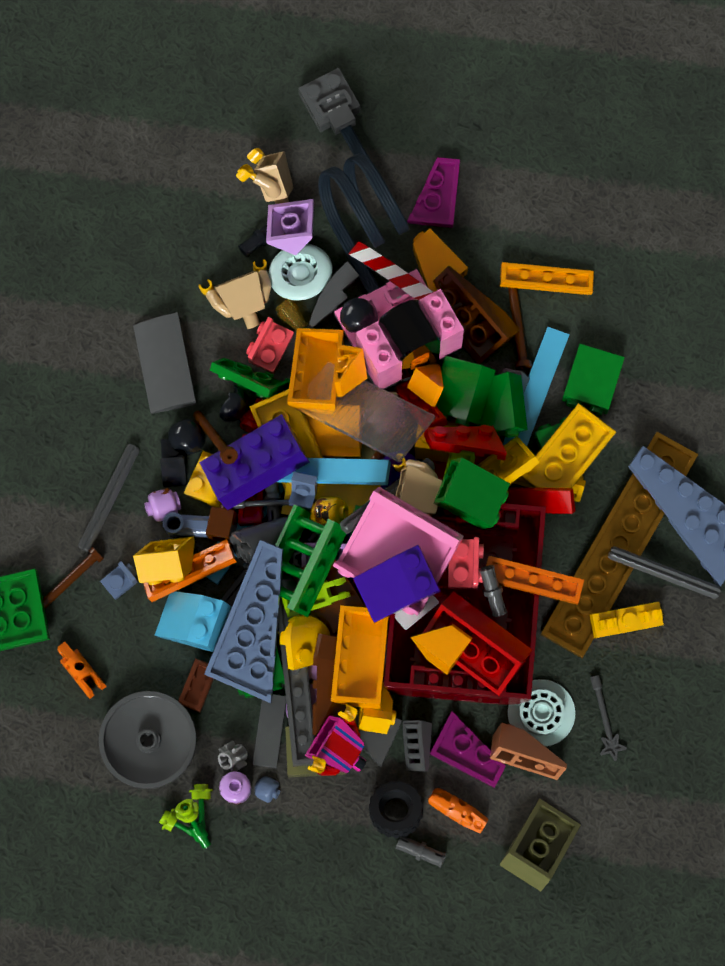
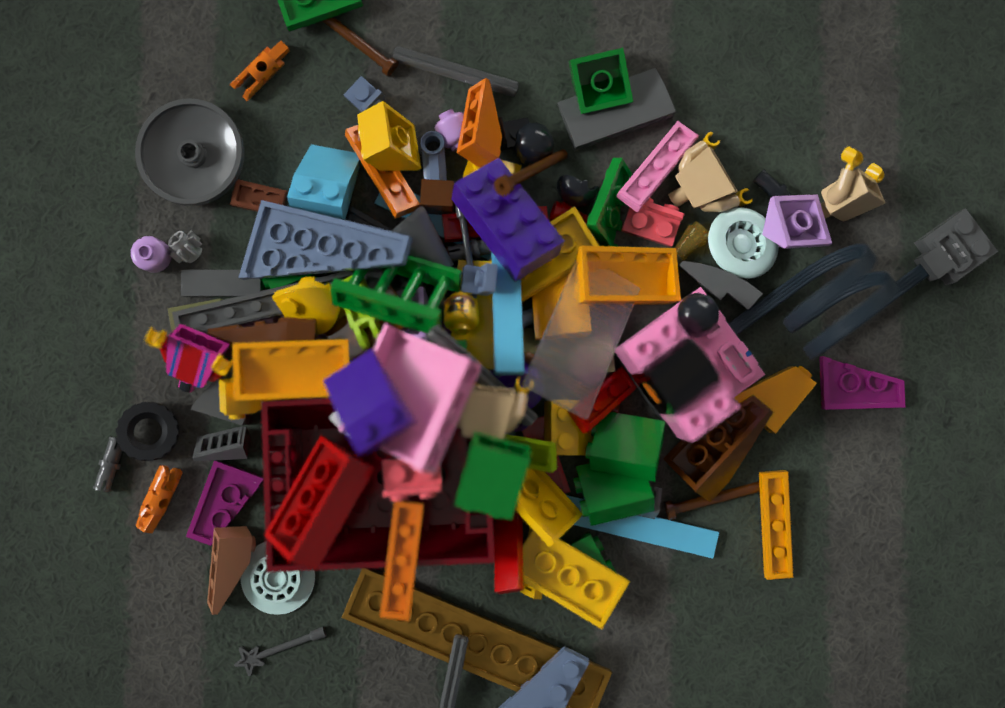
camera: 85 degrees right, 10 degrees up
(139, 371) = (601, 80): none -> green slope
(165, 478) = (480, 128): none -> orange slope
(187, 812) = (102, 203): lime plant -> none
(223, 333) = (657, 166): none -> bright pink tile
(267, 789) = (160, 289): sand blue piece -> none
(350, 369) = (630, 314): light orange slope -> none
(390, 271) = (756, 346): sticker -> none
(427, 383) = (628, 405): light orange slope -> none
(443, 646) = (304, 467): light orange slope -> none
(472, 438) = (566, 465): red wing -> none
(493, 590) = (380, 514): dark grey pin -> none
(540, 845) = (129, 594): olive slope -> none
(593, 379) = (662, 592): green brick -> none
(626, 619) = (390, 662): yellow plate -> none

